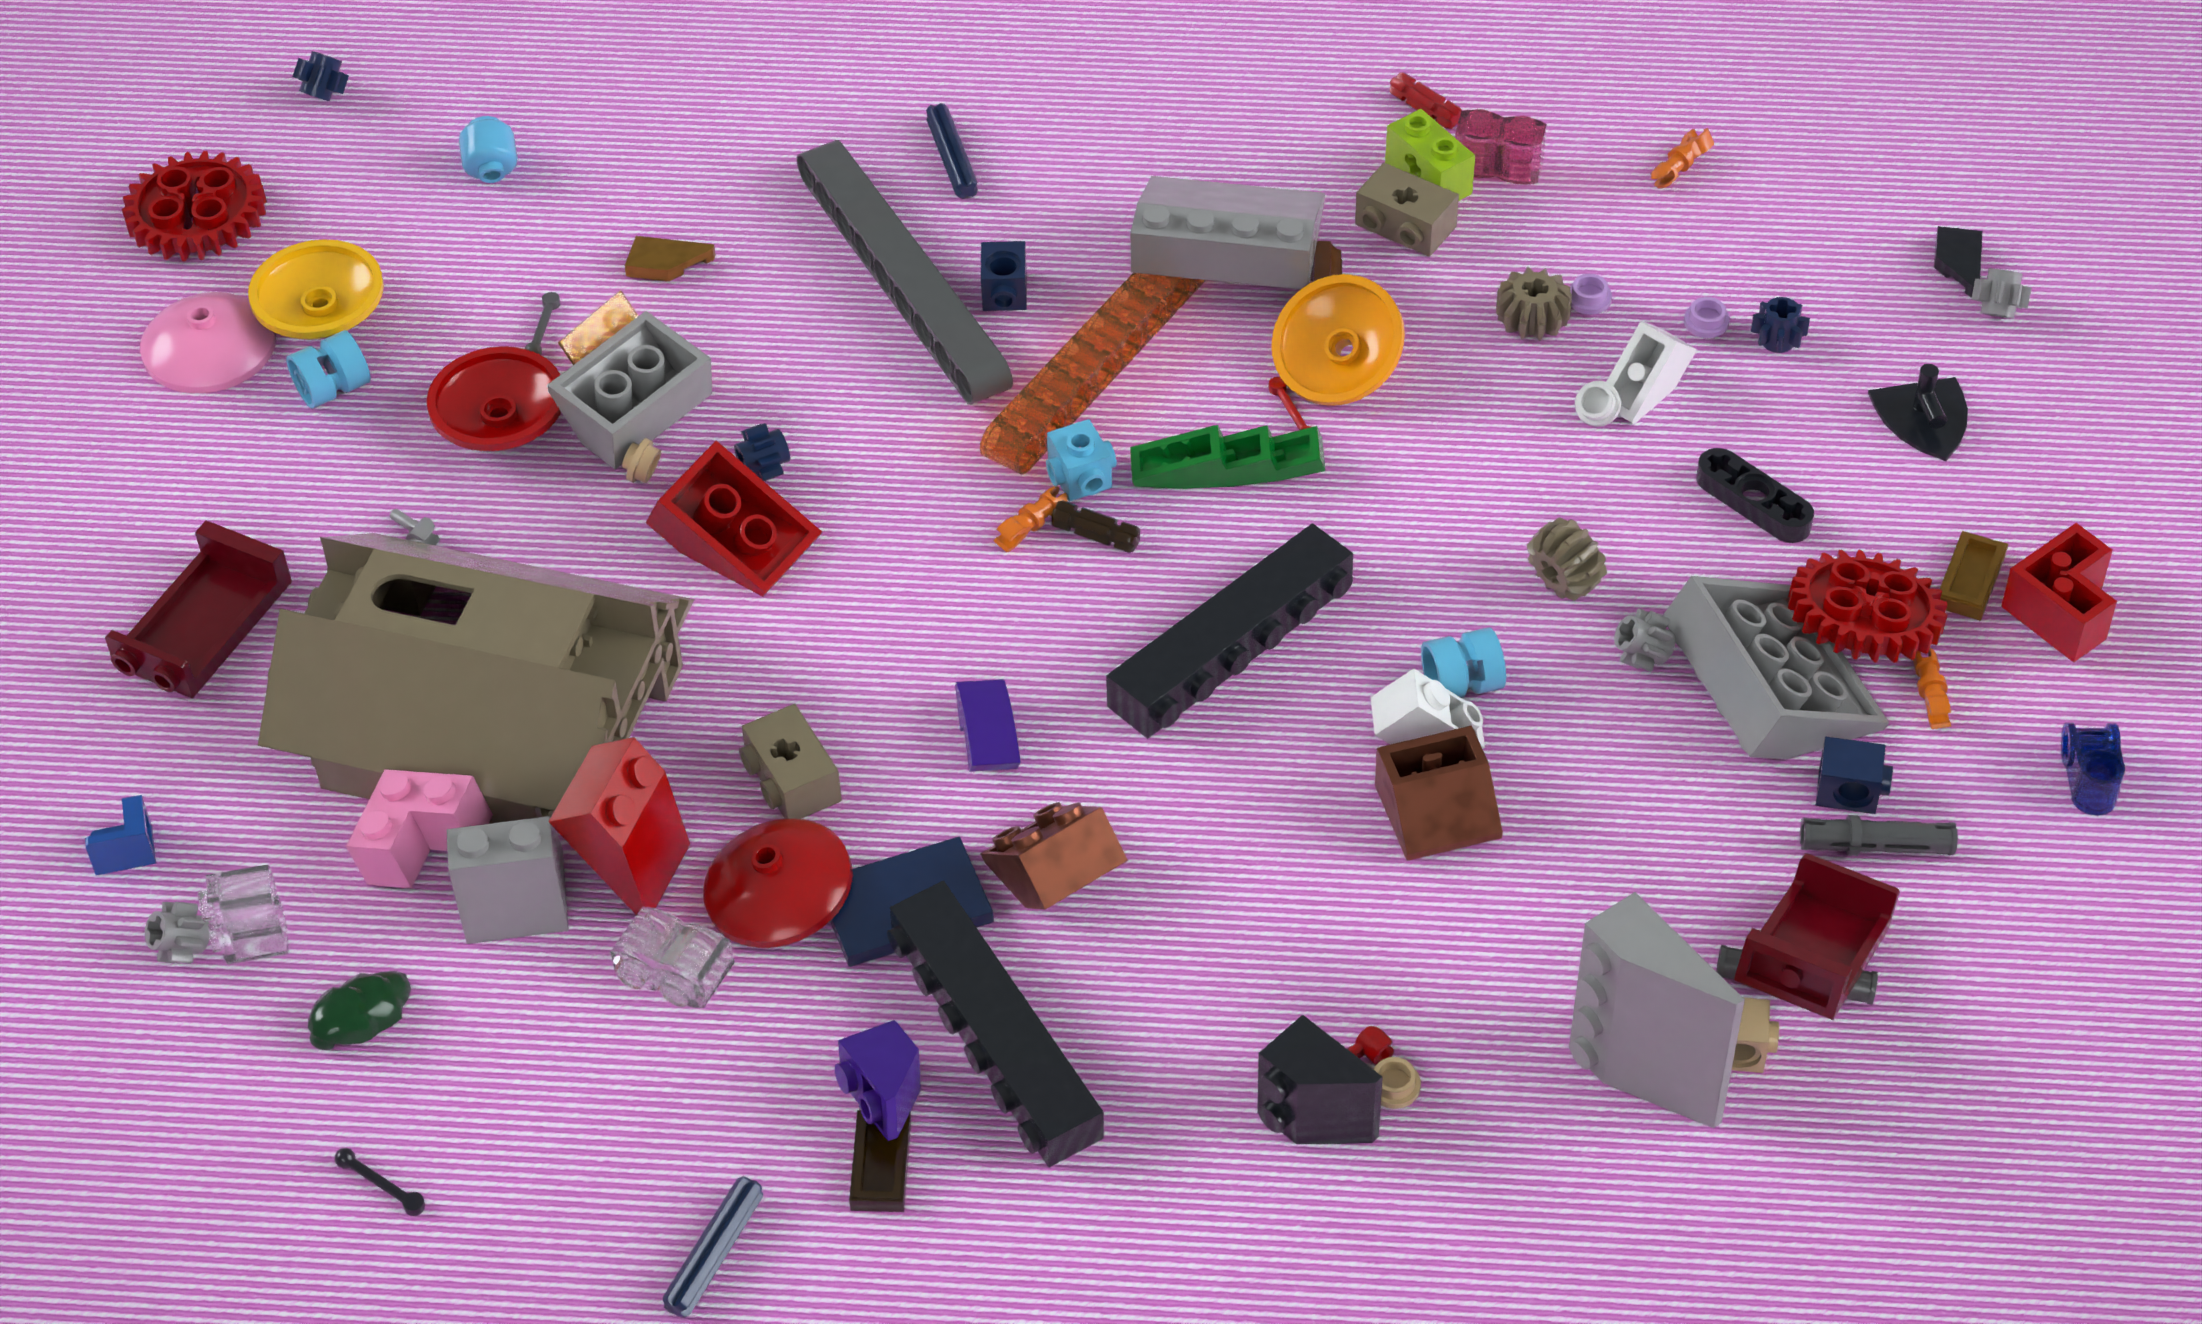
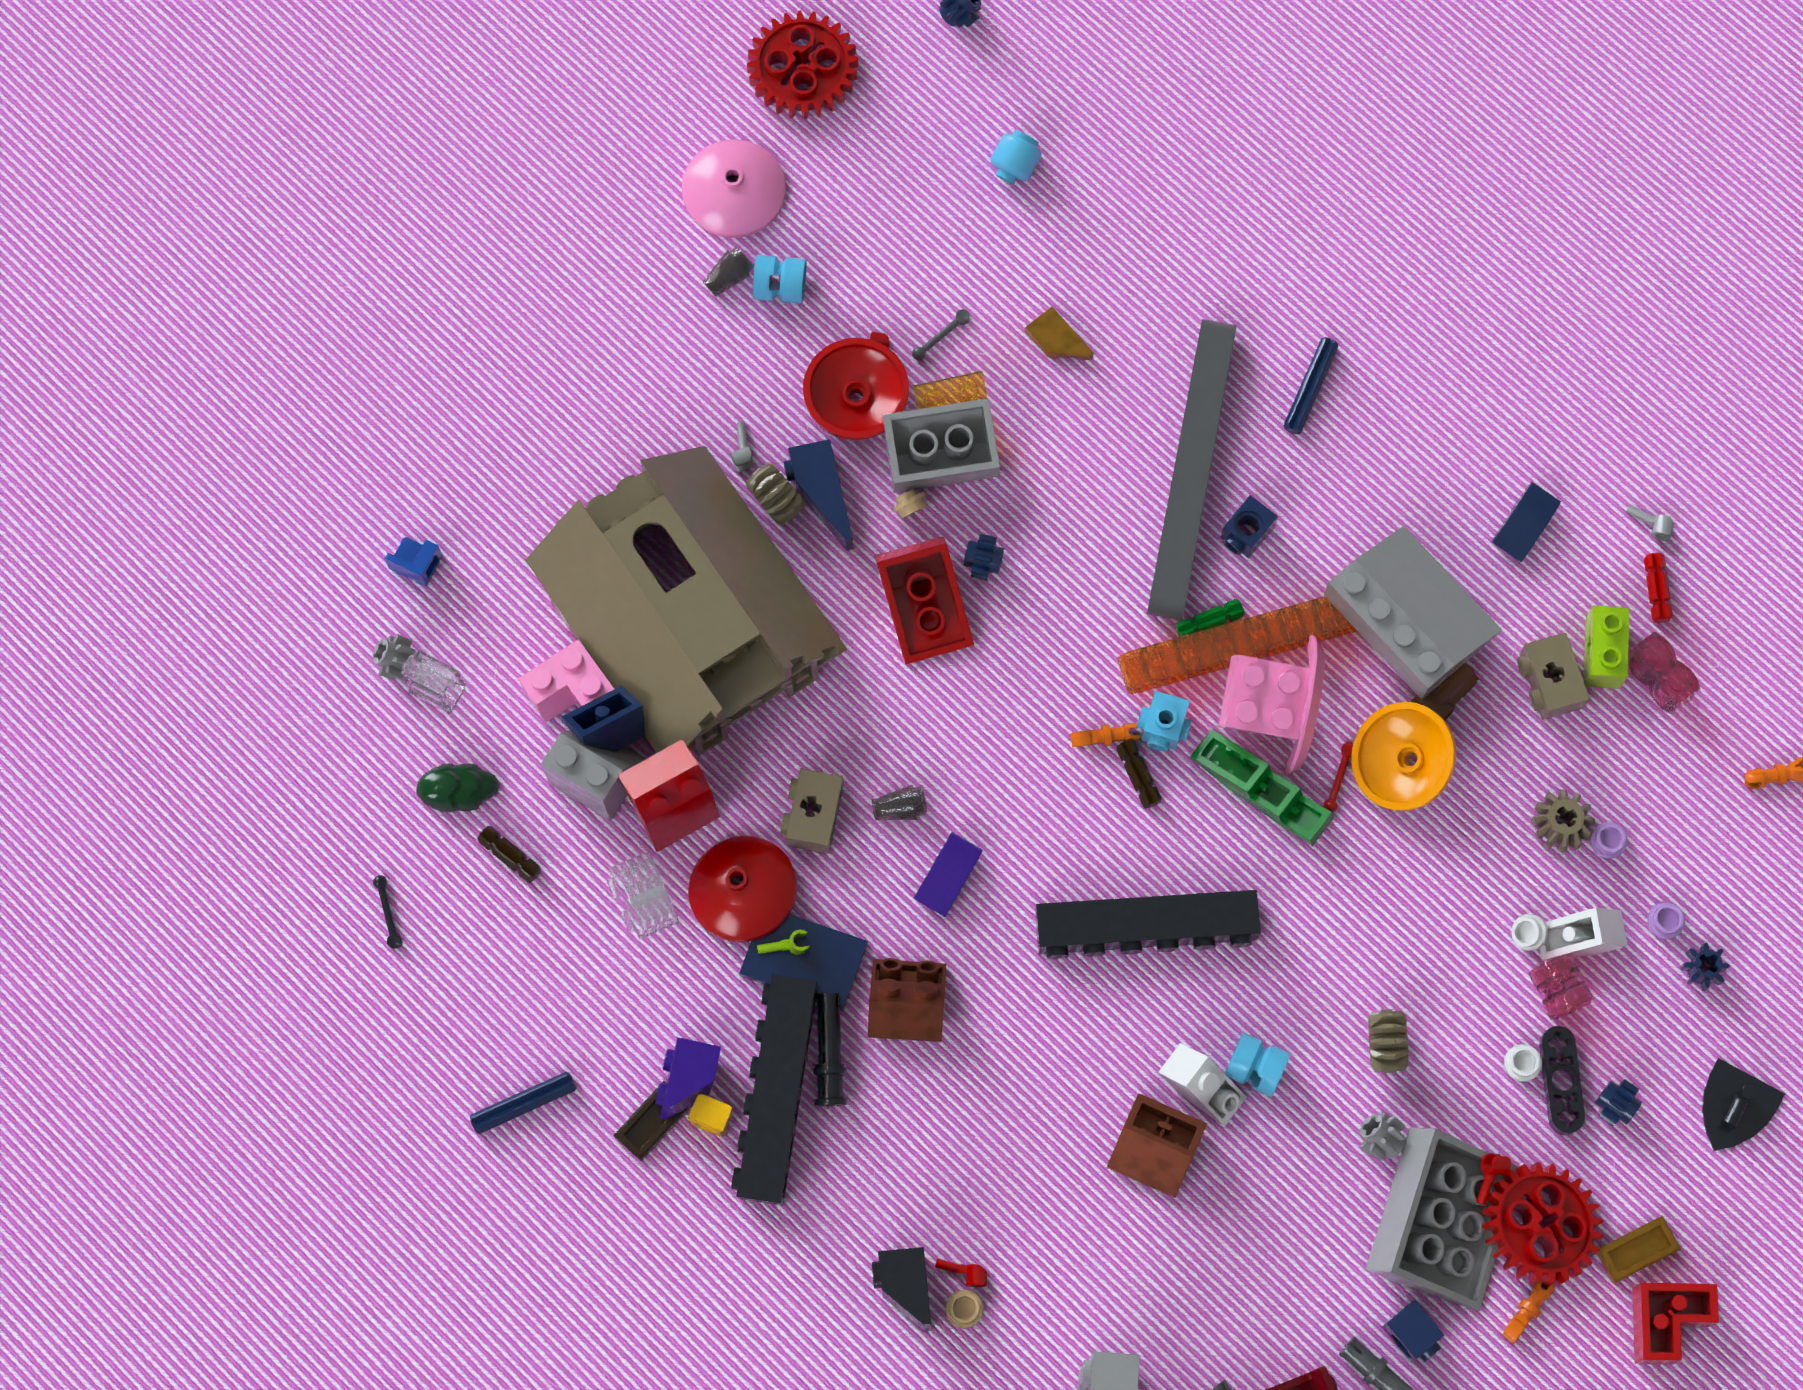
camera: 40 degrees right, 25 degrees up
(203, 612) = (573, 419): dark red panel -> none
(265, 398) = (728, 271): none -> clear smoke cone
(315, 289) = (812, 188): yellow dish -> none
(478, 1028) = (509, 854): none -> dark brown axle
(488, 796) = (608, 720): none -> dark blue slope
(490, 527) = (775, 494): none -> dark tan gear
(537, 505) = (818, 484): none -> dark blue slope
(878, 701) = (901, 804): none -> clear smoke cone
(882, 887) = (787, 944): none -> lime hand
(944, 1100) = (710, 1115): none -> yellow slope
(1031, 967) = (829, 1066): none -> black pin
(1051, 346) = (1211, 618): none -> green axle
(1166, 363) = (1276, 699): none -> bright pink piece
(1258, 123) = (1526, 521): none -> dark blue slope
(1378, 56) = (1661, 524): none -> light grey hand
(1659, 410) = (1561, 973): none -> clear pink wheel
(1705, 503) = (1523, 1063): none -> white plate
(1782, 582) = (1492, 1165): none -> red hand
(1825, 469) = (1618, 1102): none -> dark blue gear

